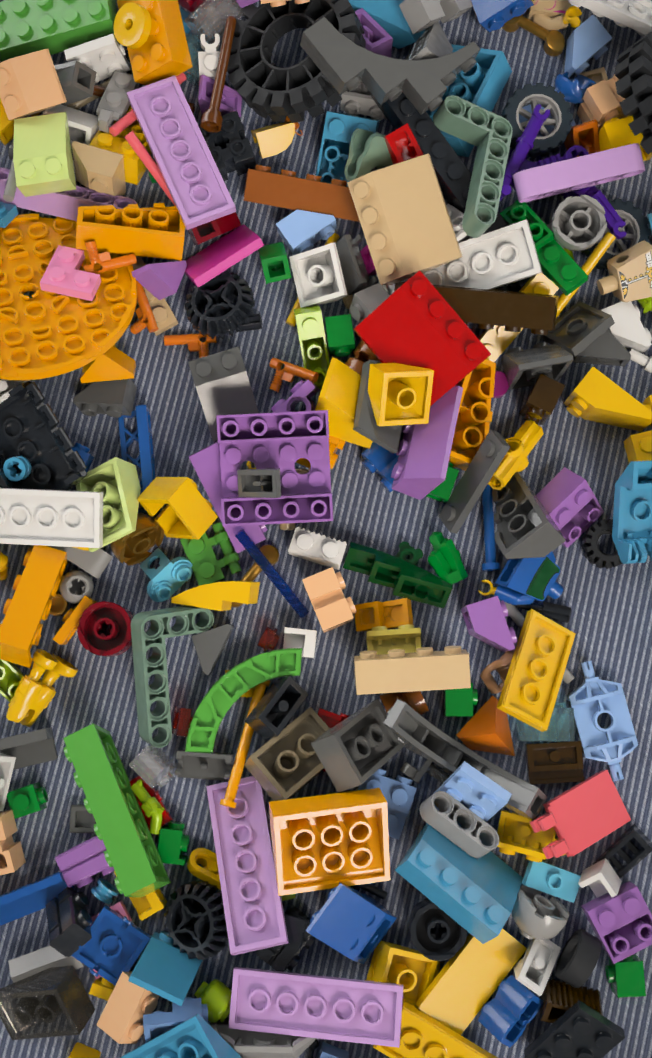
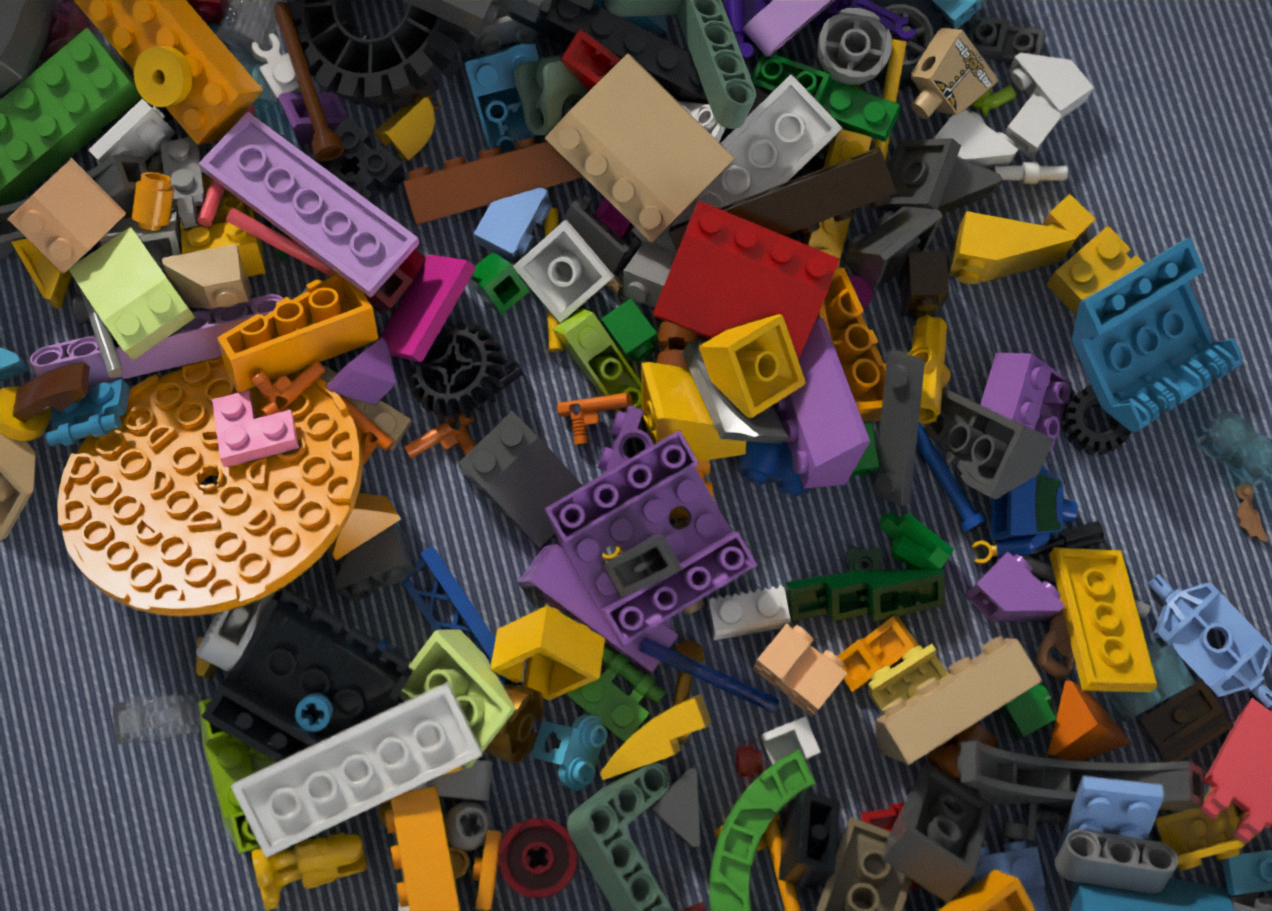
camera: 35 degrees left, 5 degrees down
(86, 102) = (153, 201): none -> light orange brick

